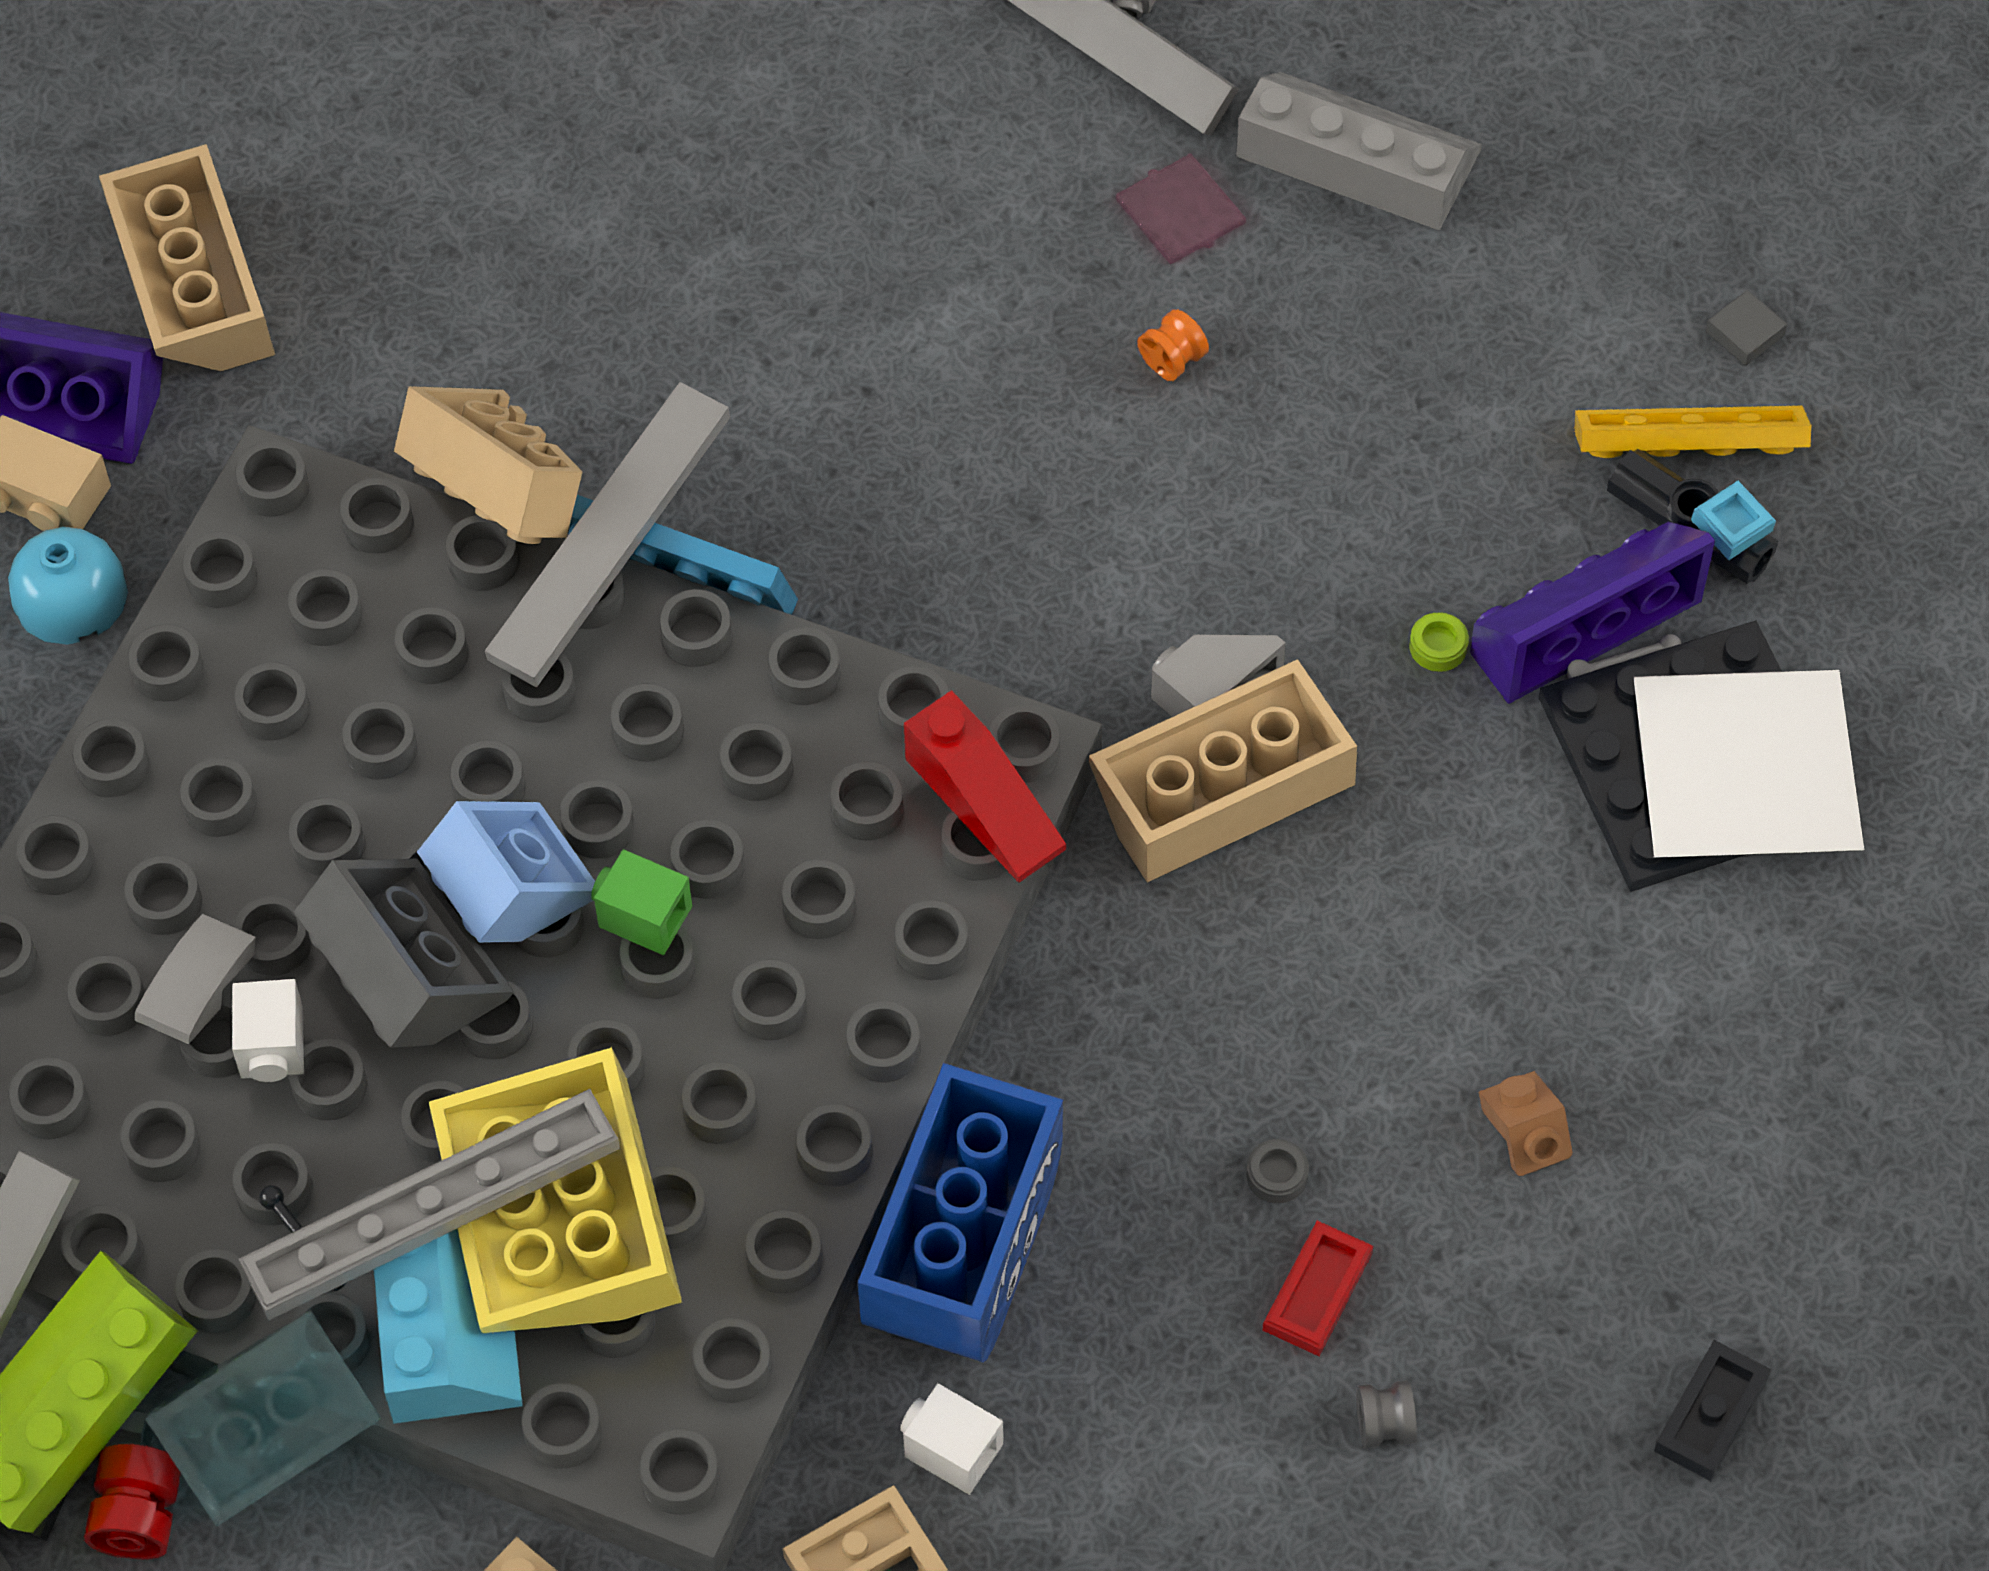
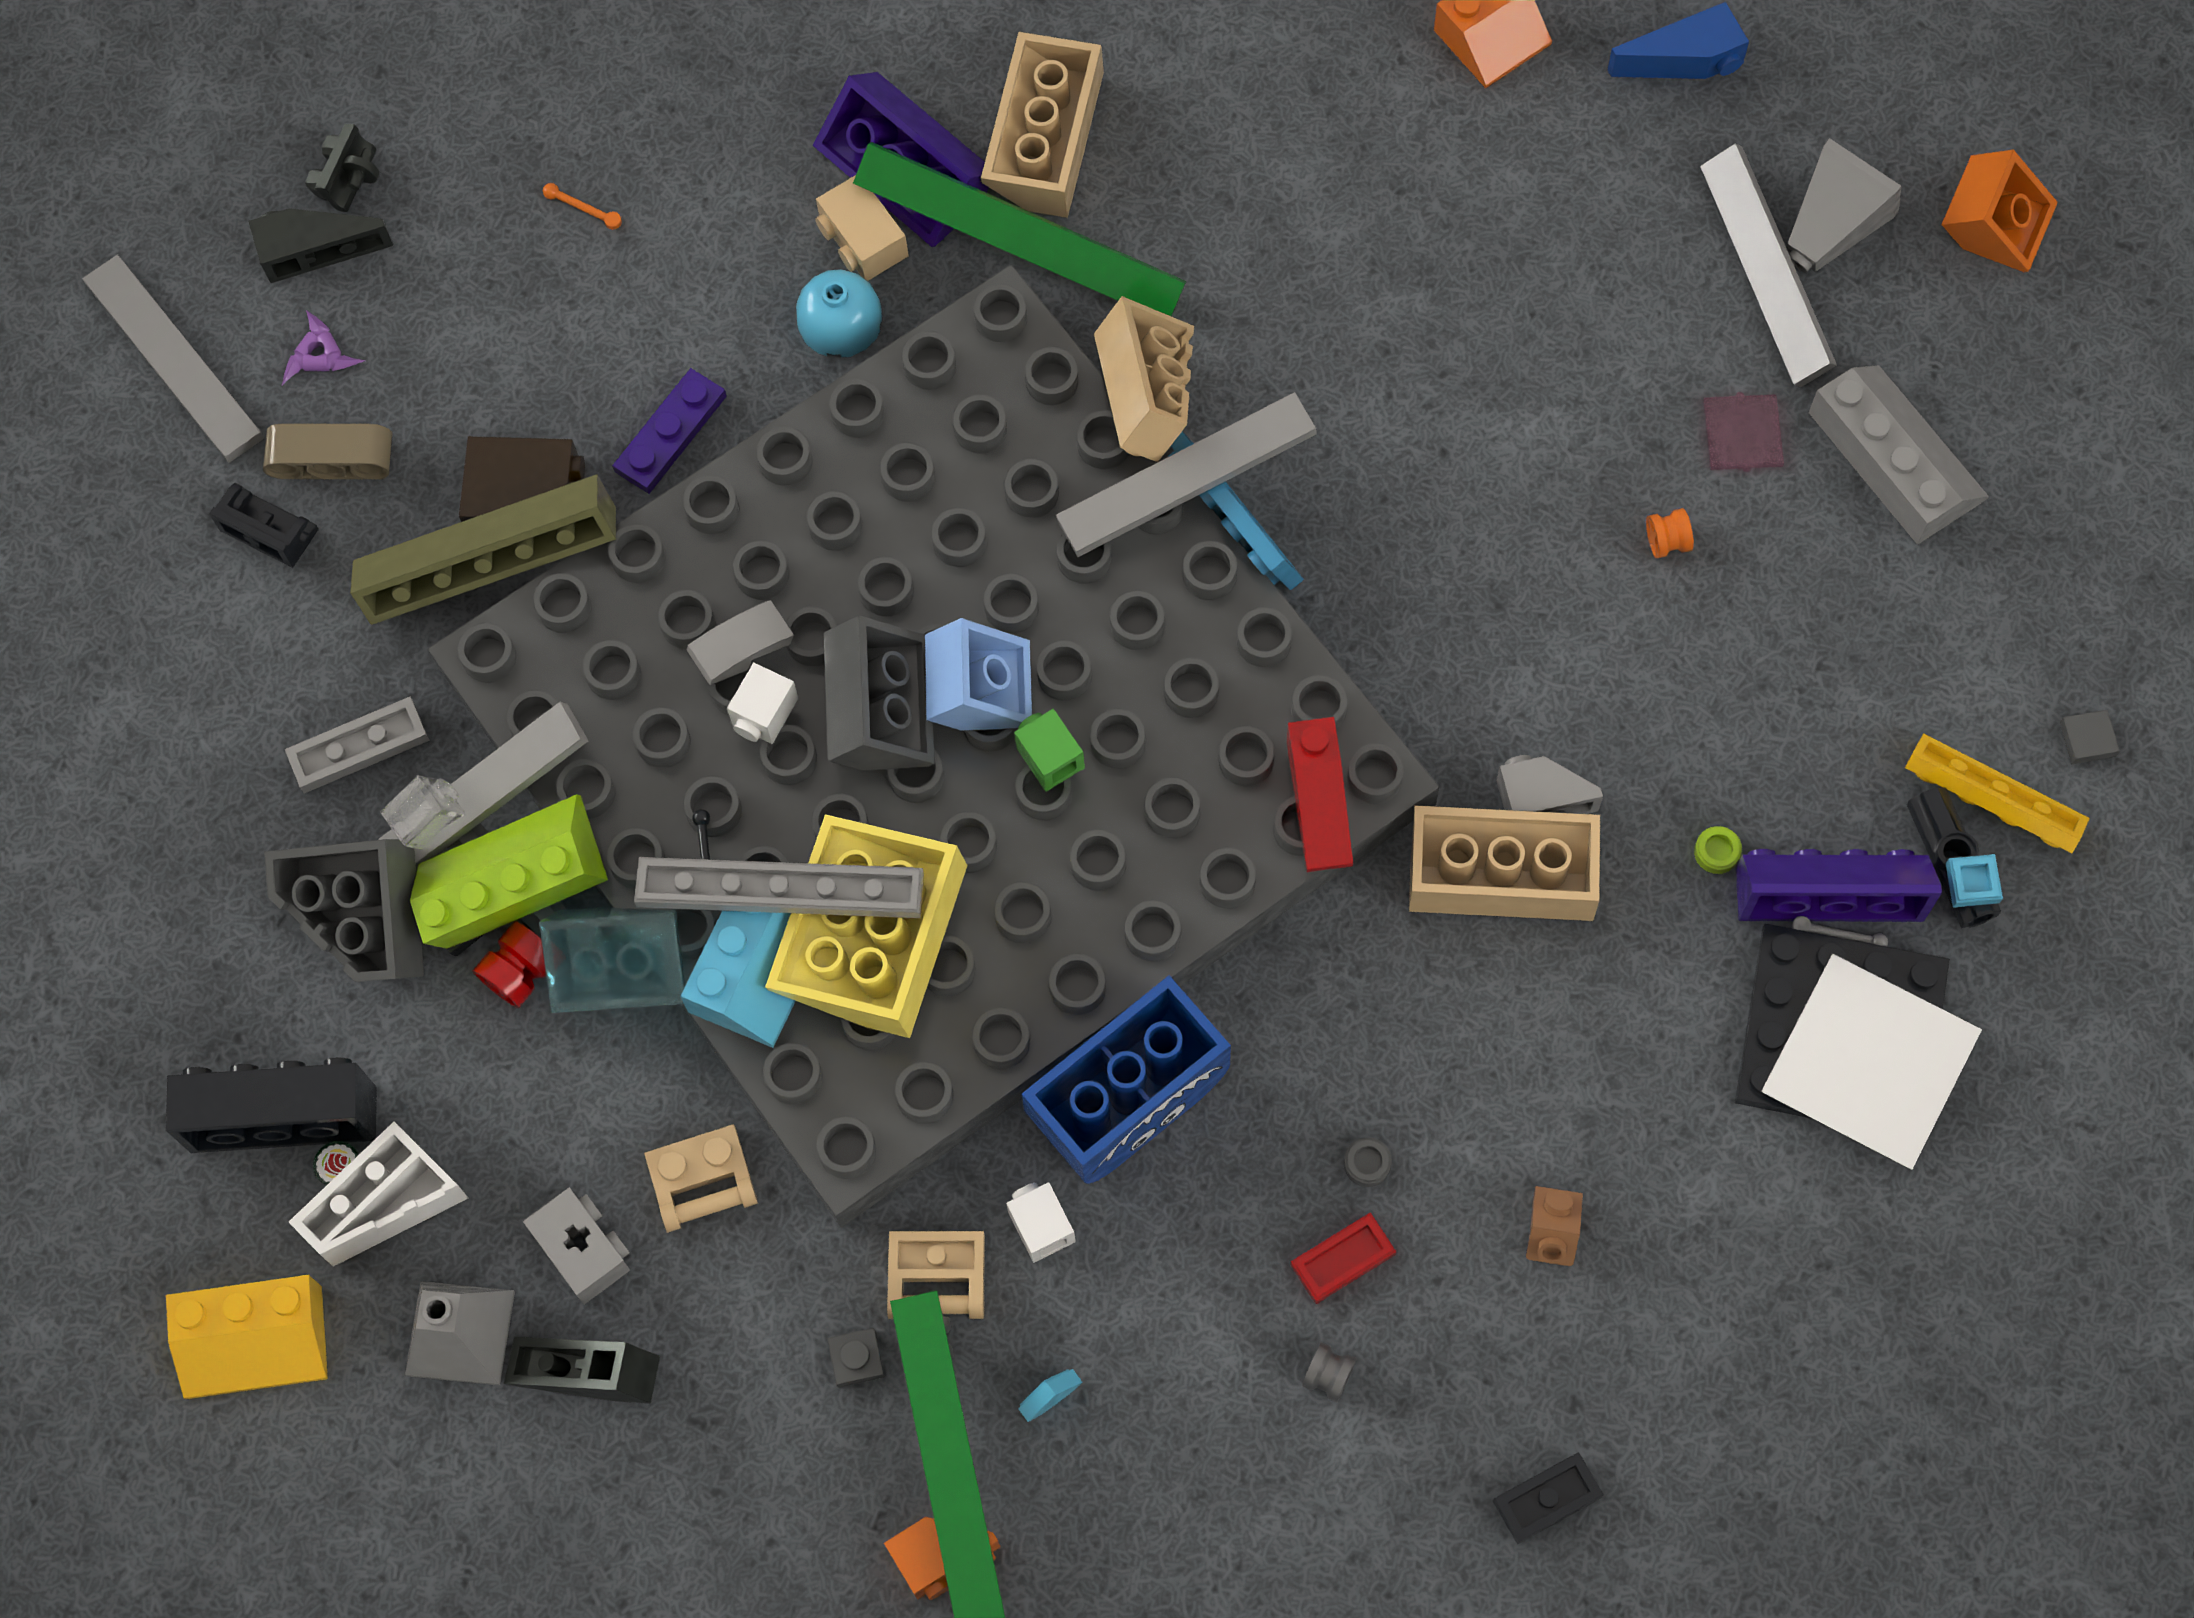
camera: 35 degrees right, 10 degrees up
(222, 387) = (1016, 230): none -> green tile

